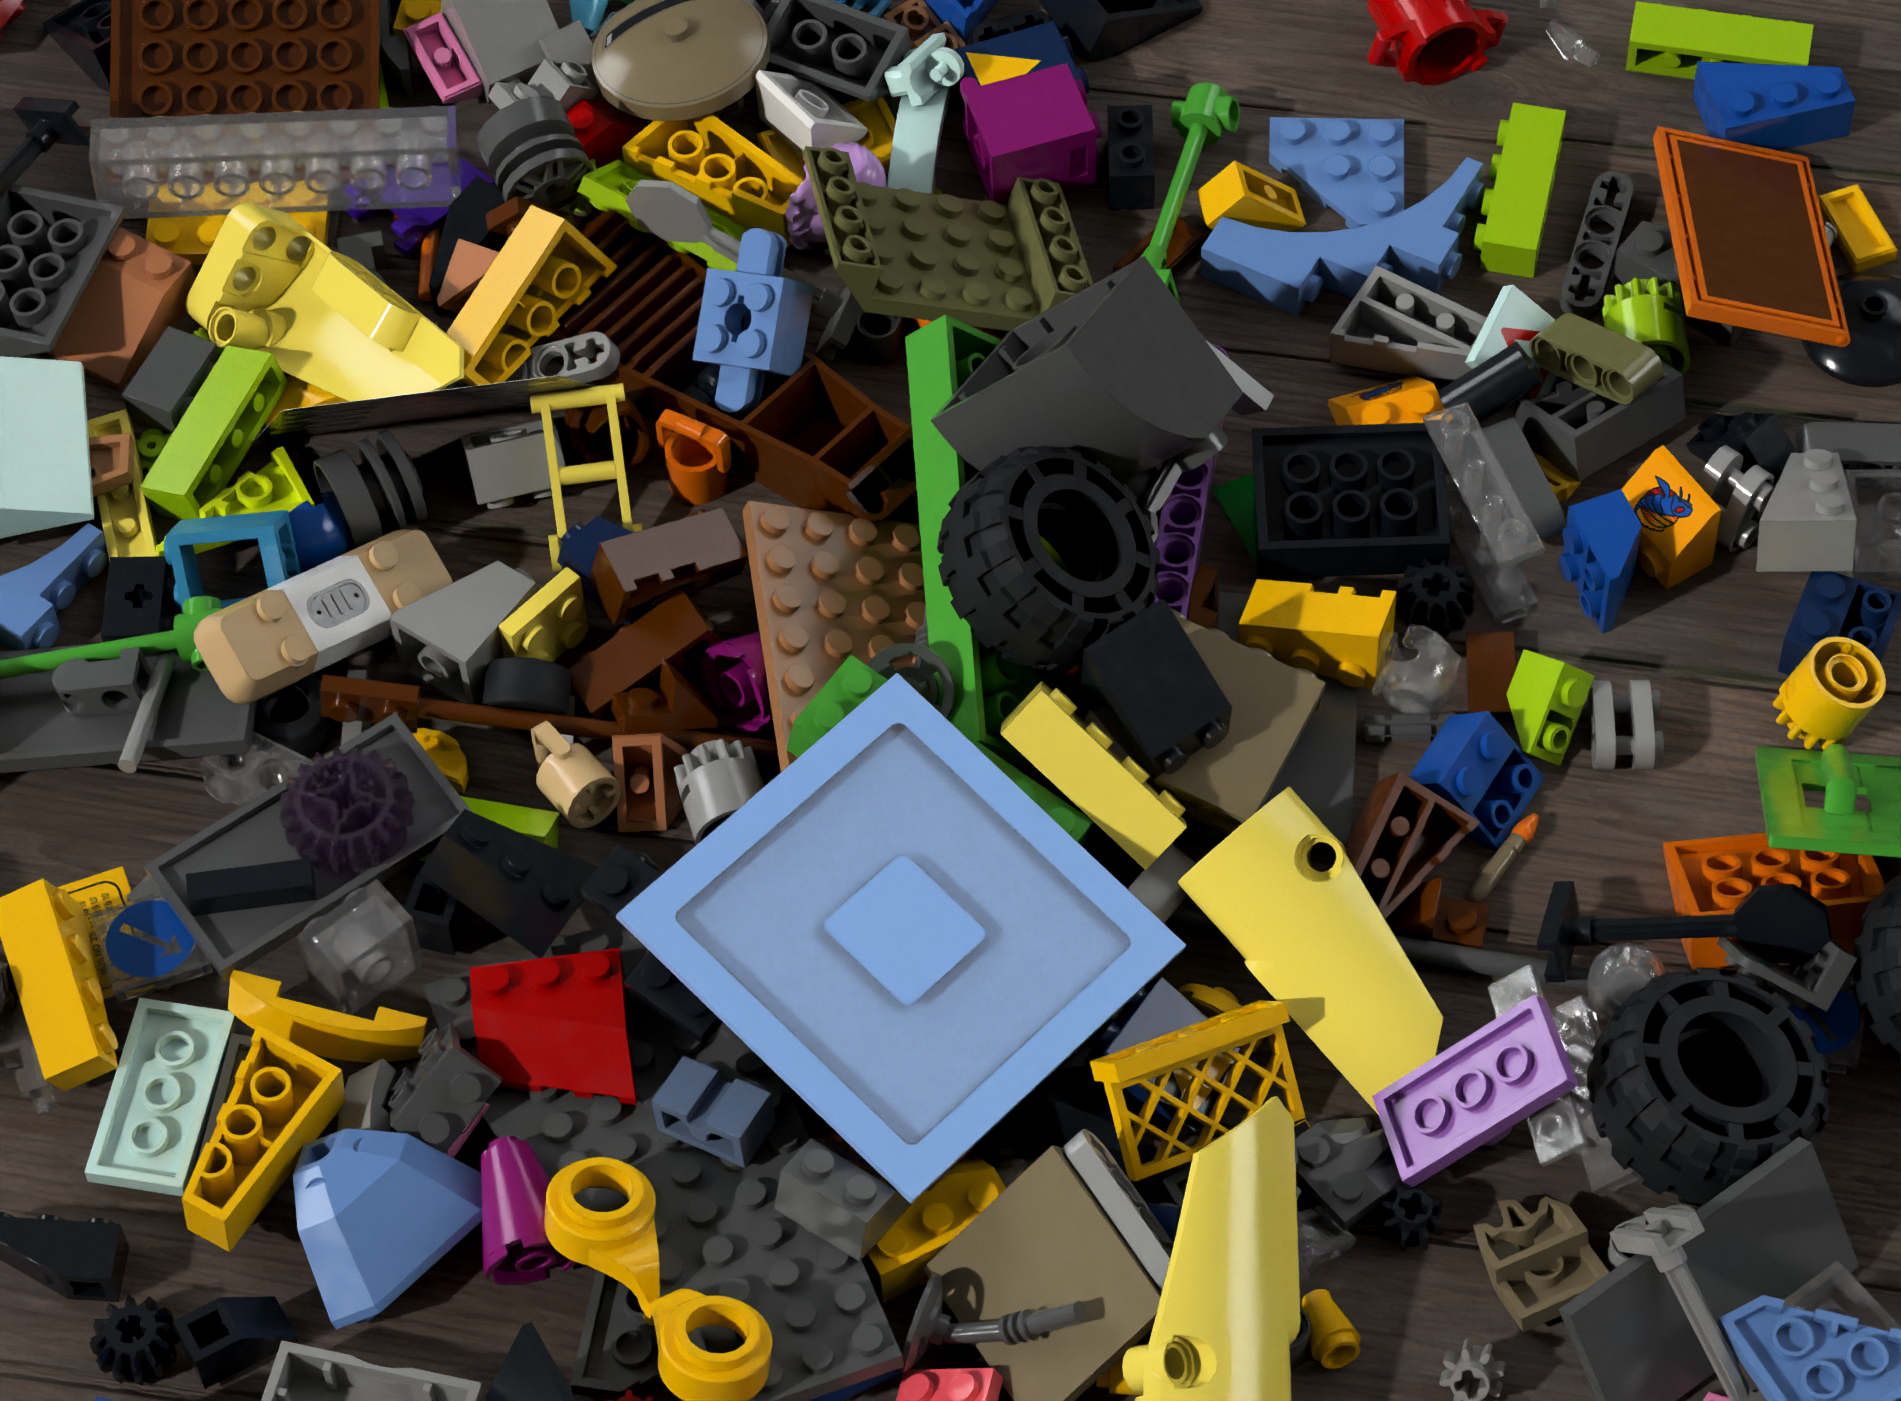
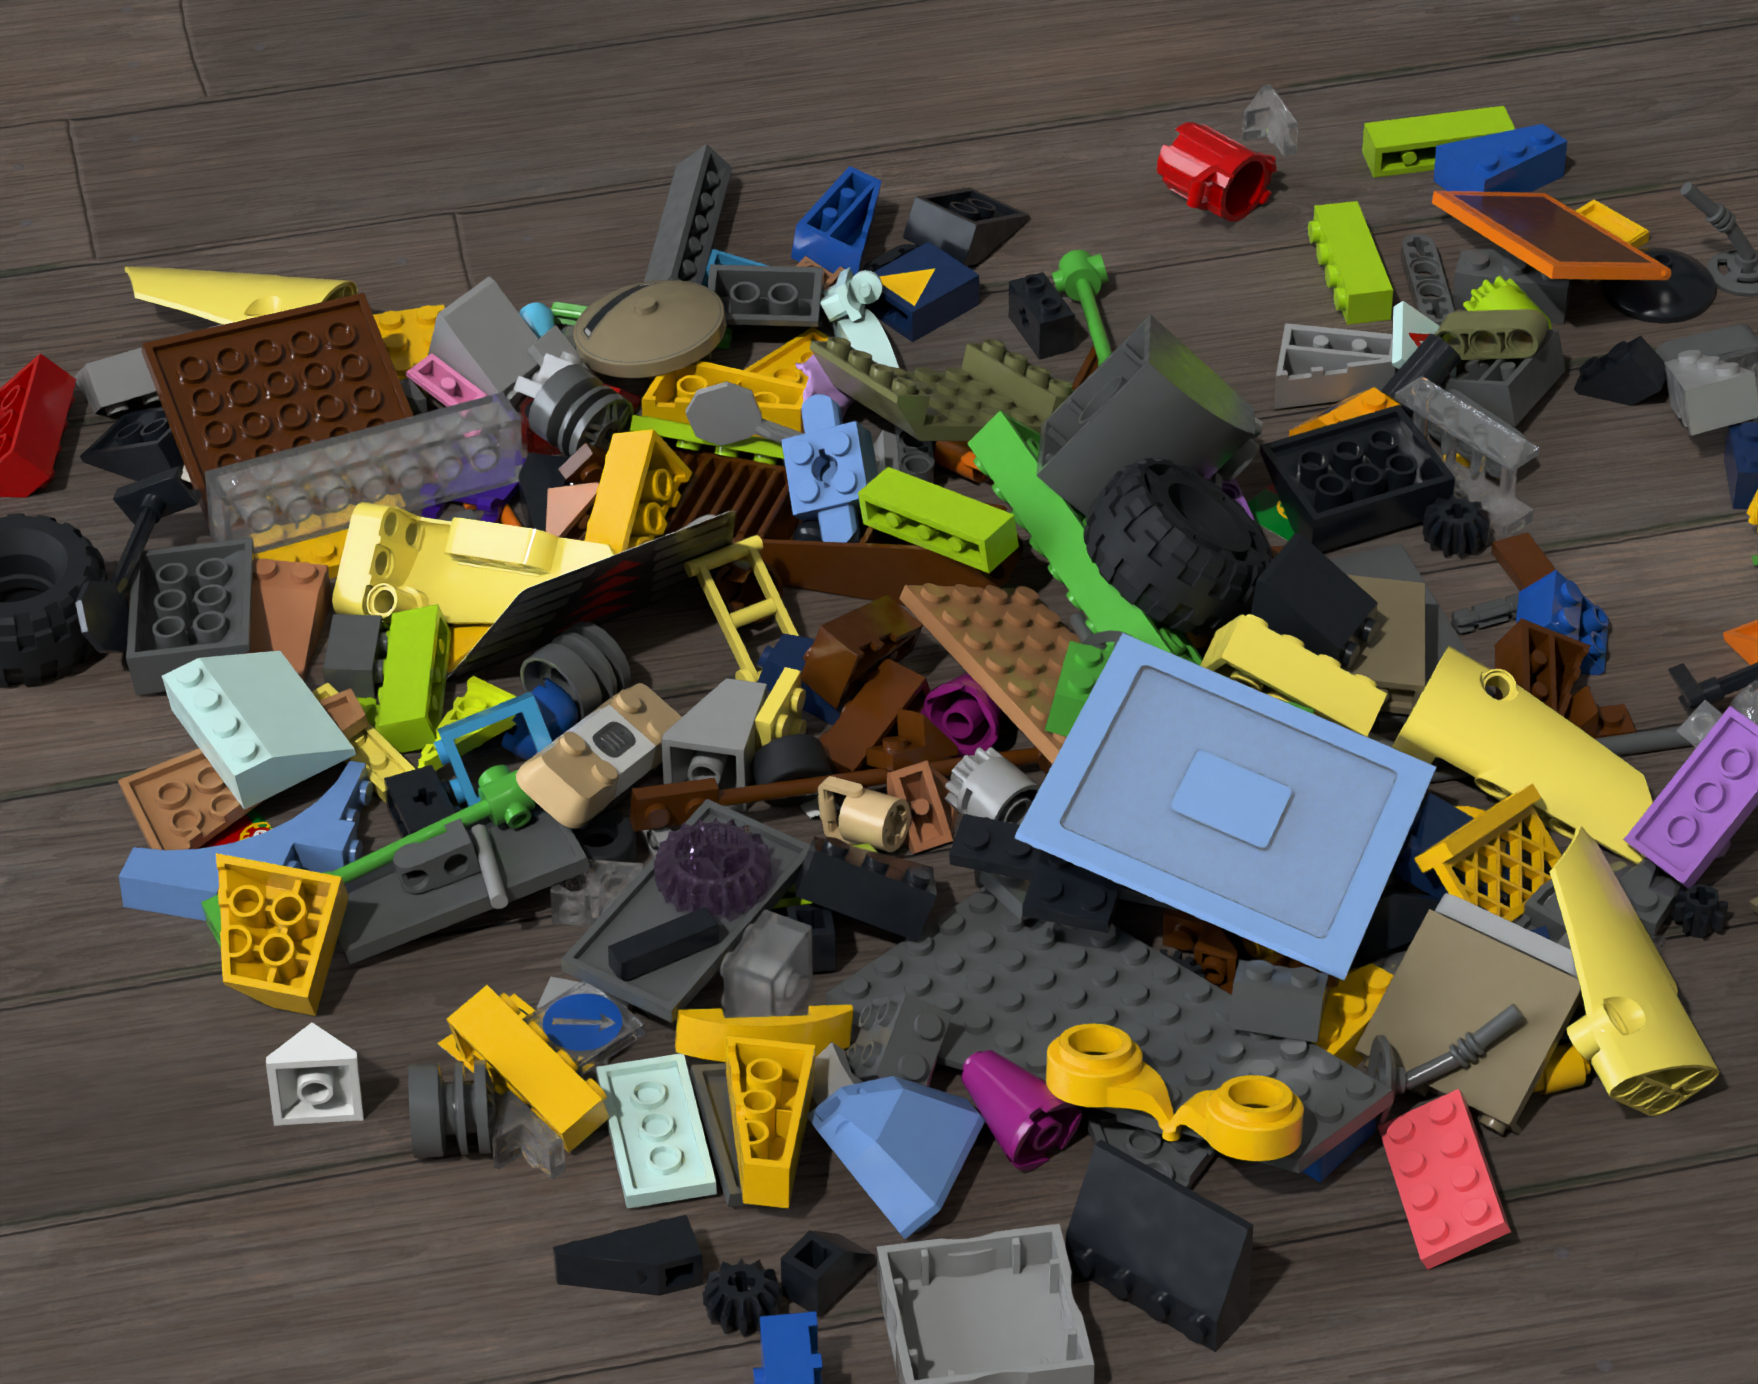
camera: 25 degrees left, 15 degrees down
(509, 463) = (673, 635): light grey slope -> none
(557, 1024) = (971, 965): red wedge -> none
(695, 457) = (825, 582): orange piece -> none
(713, 1113) = (1137, 983): sand blue brick -> none
(804, 112) = (764, 351): white slope -> none
(824, 428) = (938, 519): none -> lime brick
(1031, 130) = (954, 308): magenta container -> none
(1250, 199) = (1139, 306): yellow slope -> none
(1293, 266) = (1257, 334): medium blue arch -> none
(1320, 631) = (1403, 551): yellow wedge -> none
(1332, 1335) = (1697, 1002): yellow cone -> none
(1344, 163) = (1206, 283): medium blue plate -> none
(1421, 683) = (1482, 576): clear helmet -> none
(1504, 857) = (1613, 672): dark tan piece -> none
(1546, 704) = (1587, 558): lime slope -> none
(1571, 44) = (1325, 169): clear bar -> none
(1601, 554) = (1568, 460): blue slope -> none
(1641, 707) = (1647, 565): light grey brick -> none
(1675, 519) = (1599, 426): light orange slope -> none
(1750, 496) = (1656, 389): light grey brick -> none

